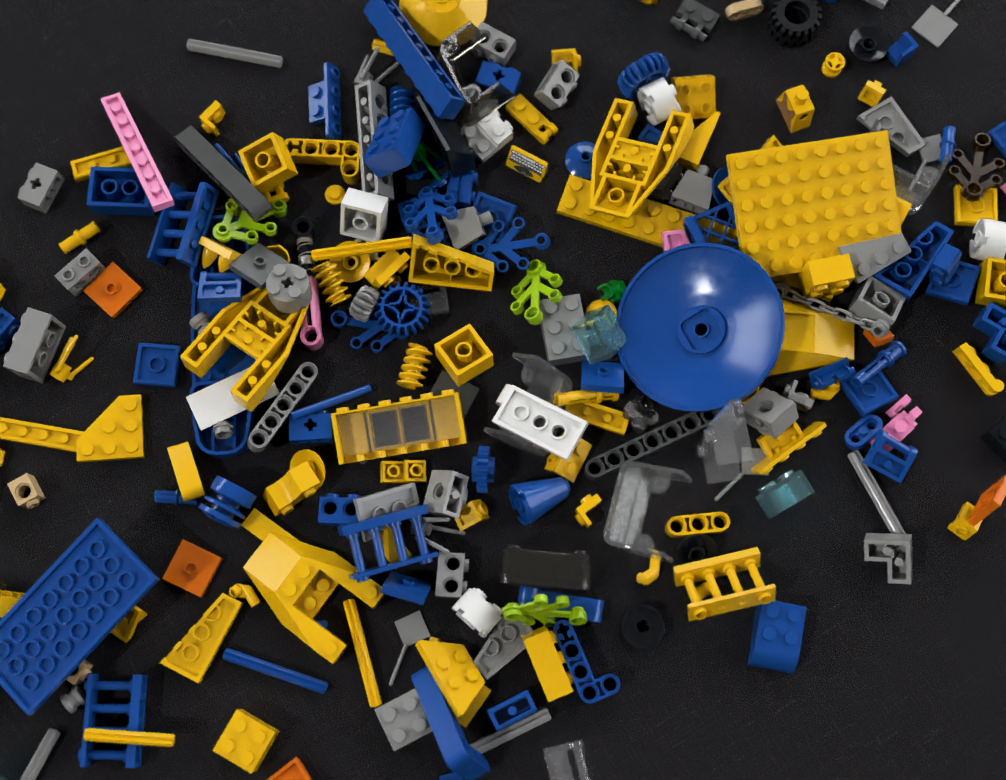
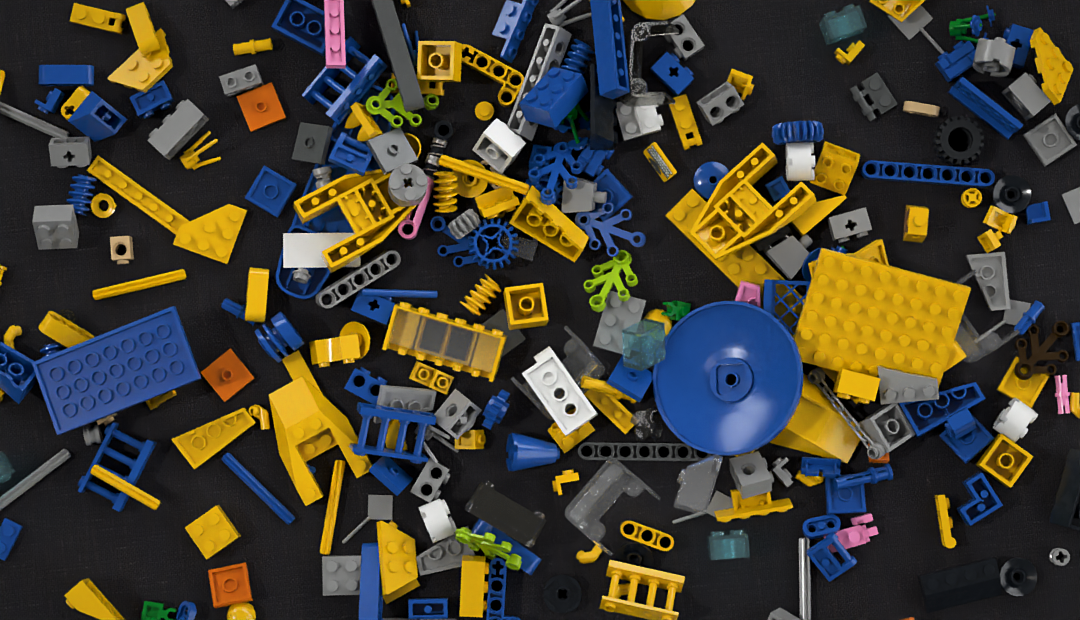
camera: 25 degrees right, 10 degrees up
(60, 519) = (139, 284): none -> yellow axle
(178, 298) = (312, 143): none -> dark grey plate
(735, 137) = (857, 217): none -> light grey brick
(788, 55) = (936, 171): none -> blue beam
(871, 70) = (1000, 220): none -> yellow bracket

